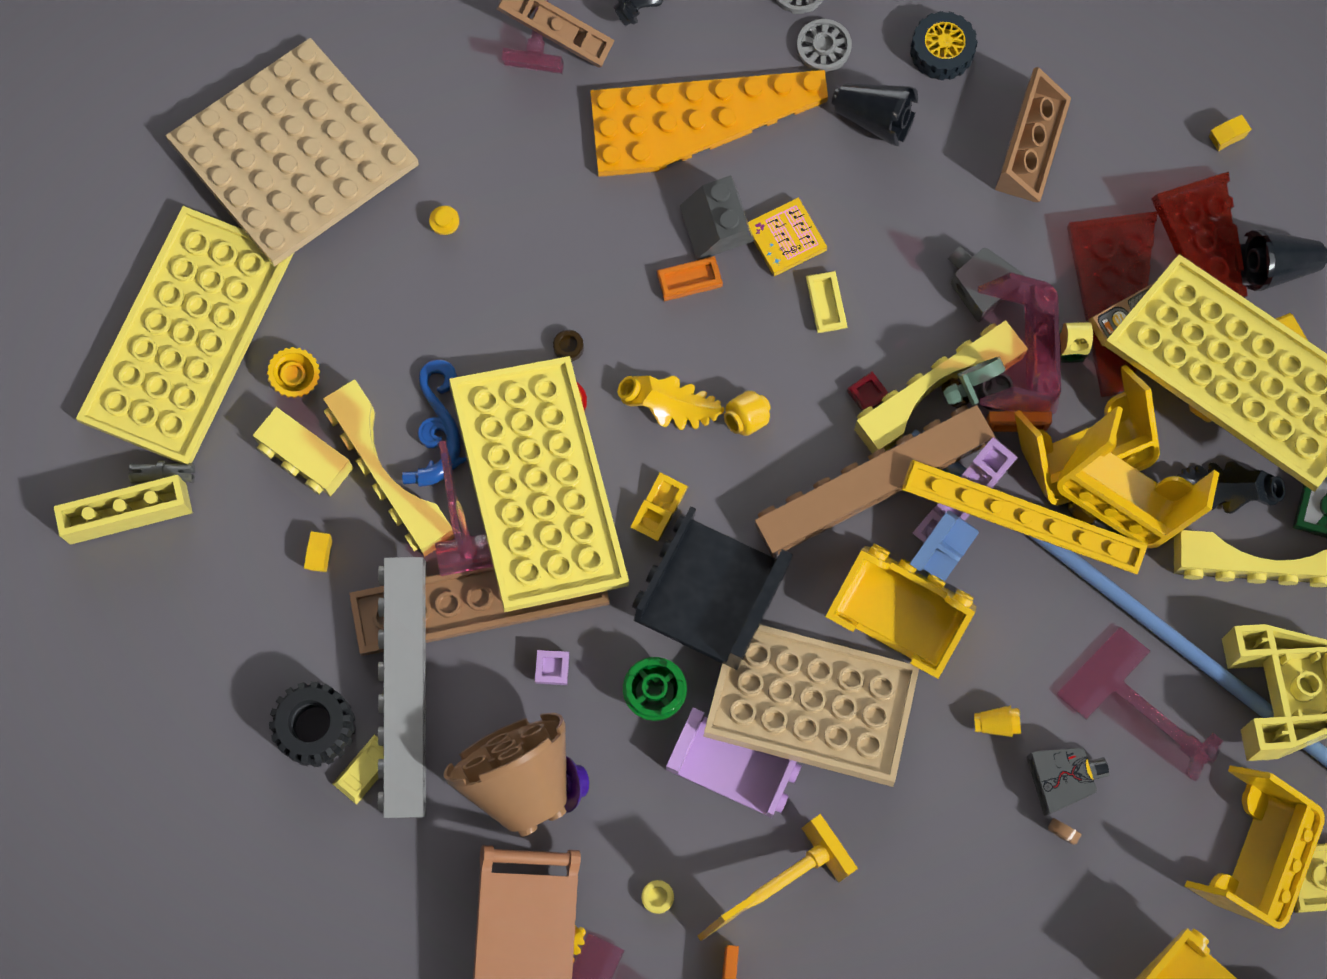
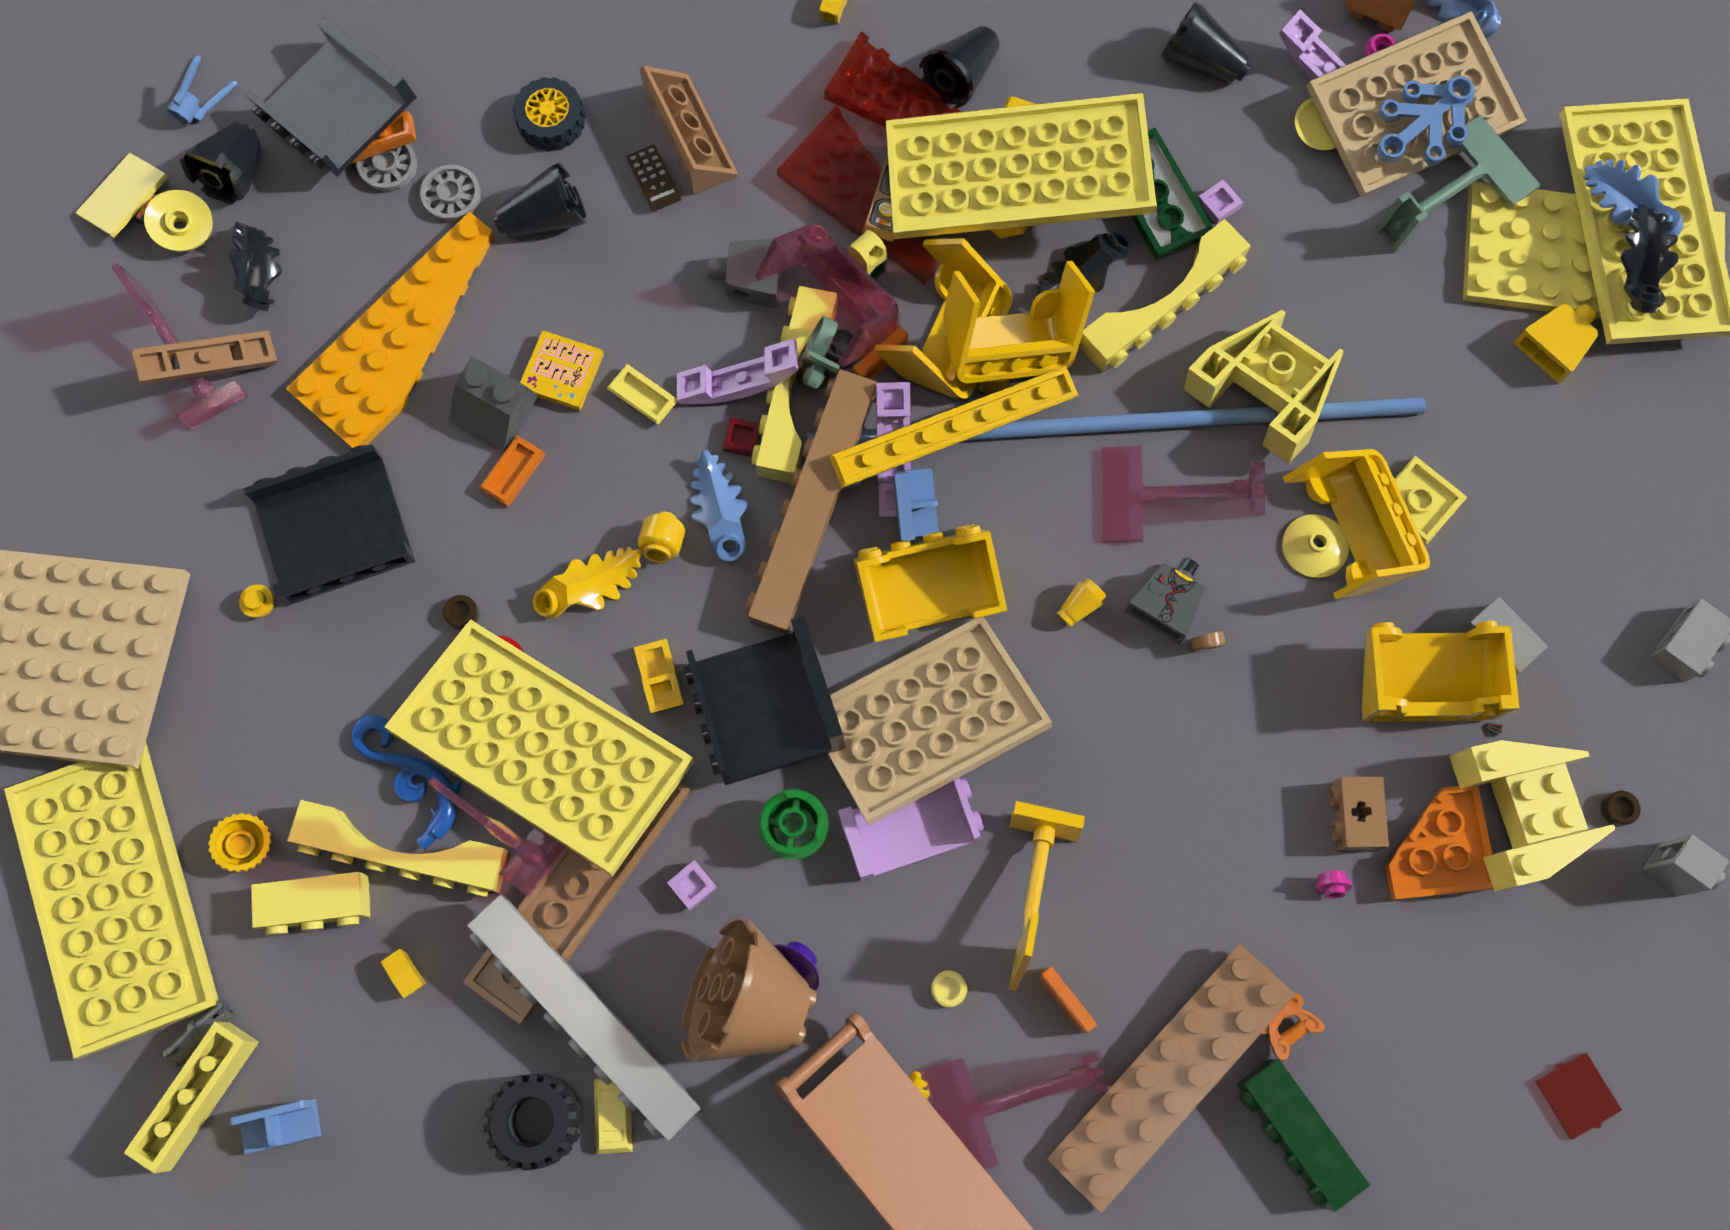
camera: 45 degrees left, 0 degrees up
(157, 578) = (278, 1126): none -> medium blue panel
(538, 210) = (330, 524): none -> black panel
(807, 427) = (718, 505): none -> medium blue plant
(900, 350) = (739, 380): none -> lavender slope
(976, 153) = (653, 178): none -> dark brown tile
(1197, 842) = (1306, 557): none -> light yellow dish

